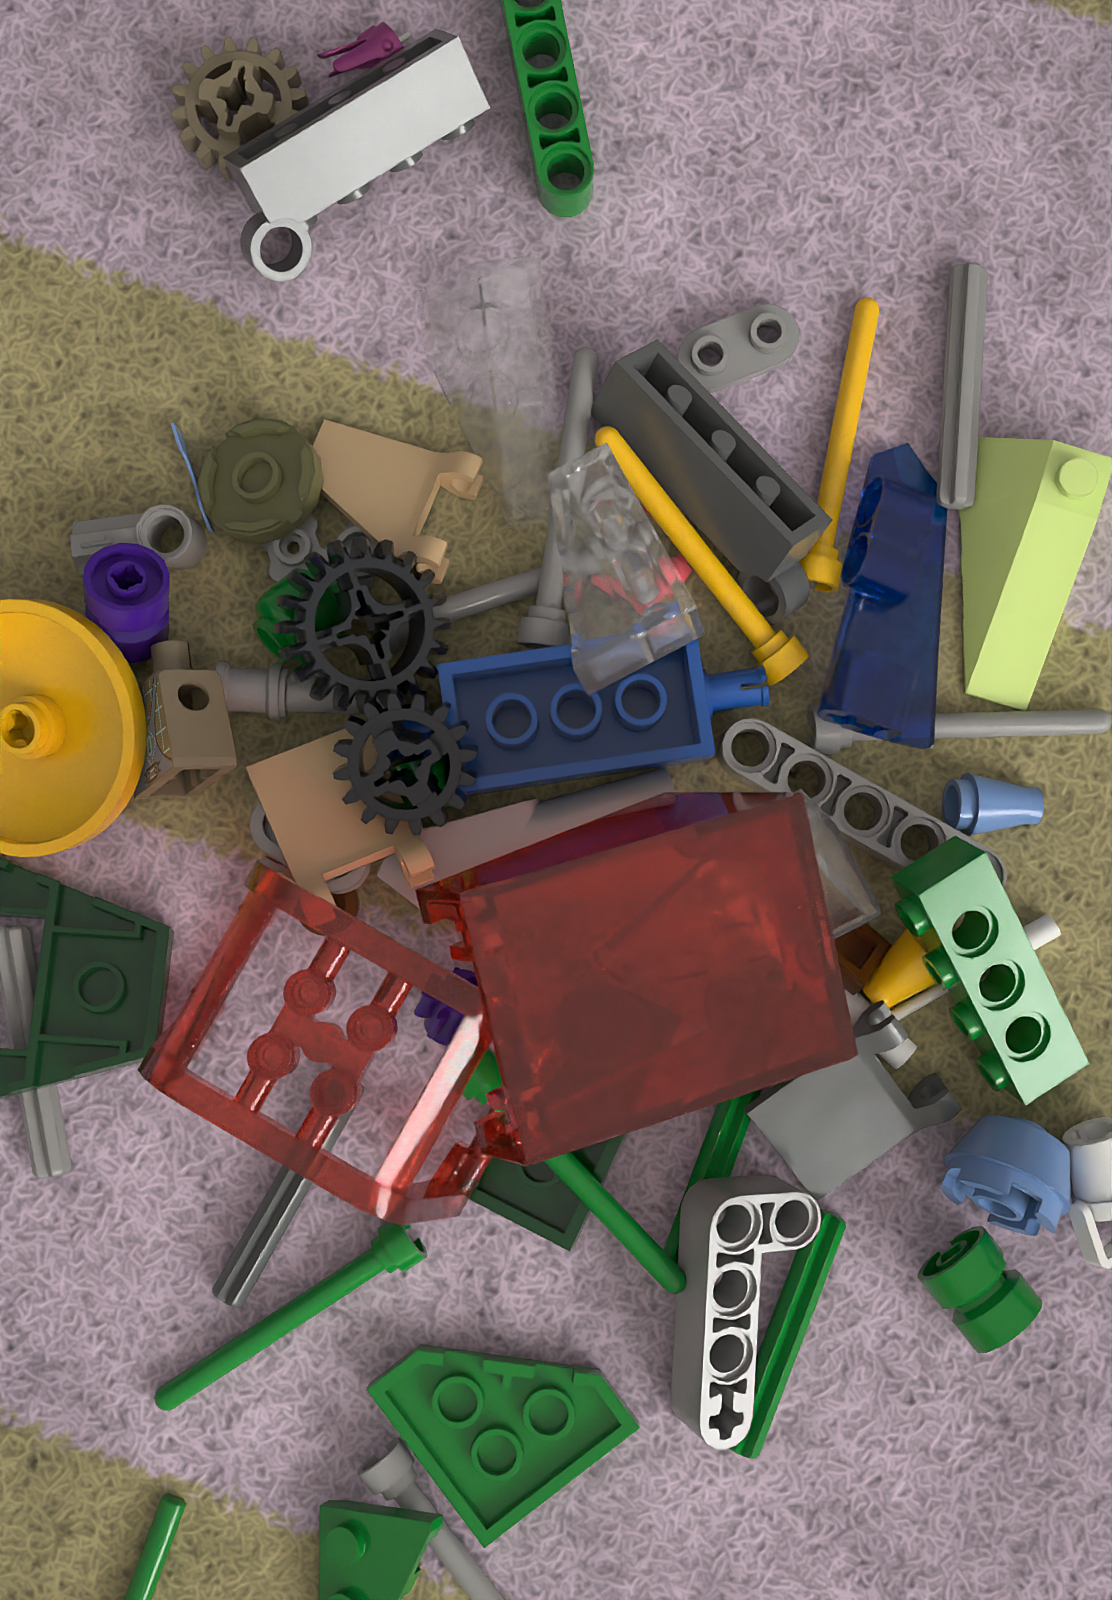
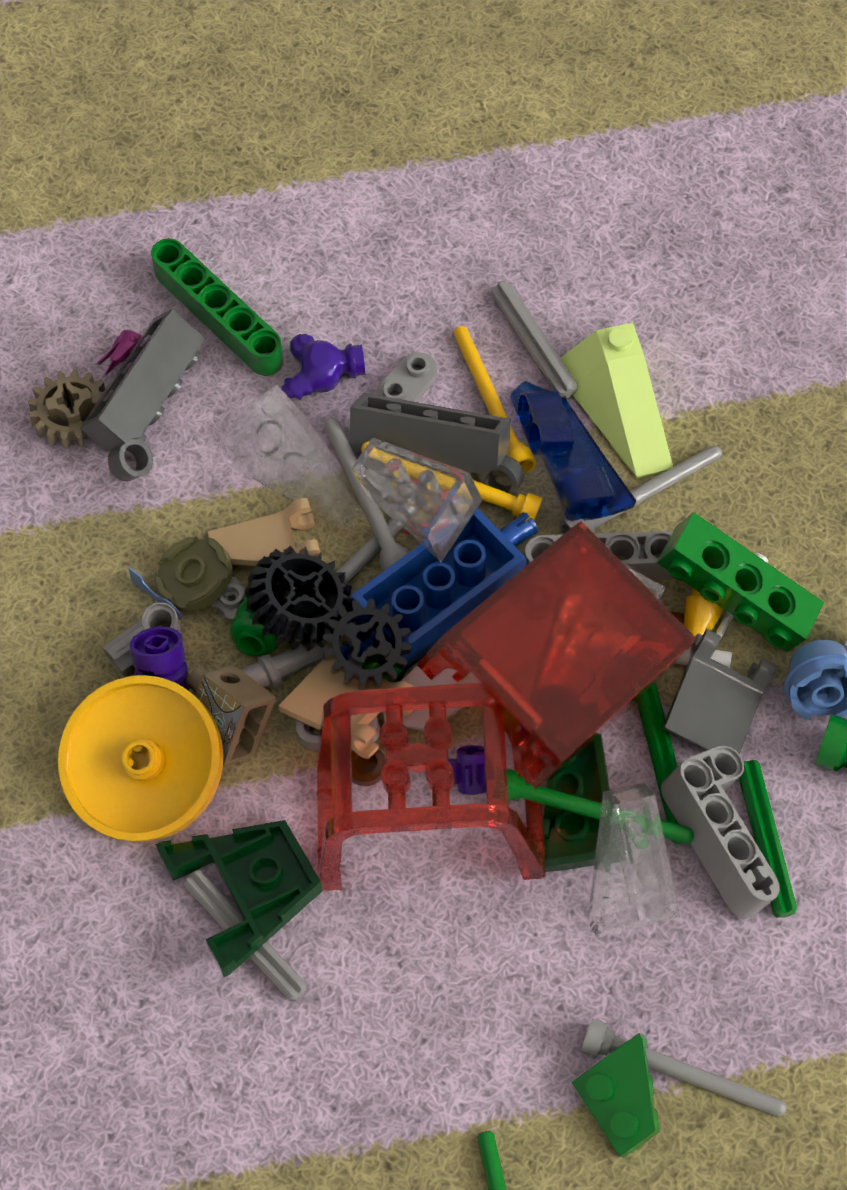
camera: 30 degrees left, 25 degrees down
(267, 1229) = (441, 925): dark grey axle -> none
(388, 1252) = (521, 916): green piece -> none
(500, 1427) = (644, 978): green plate -> none
(563, 1293) = (631, 864): none -> clear wedge
(631, 249) = (321, 366): none -> dark purple animal
(986, 804) = (676, 513): medium blue cone -> none

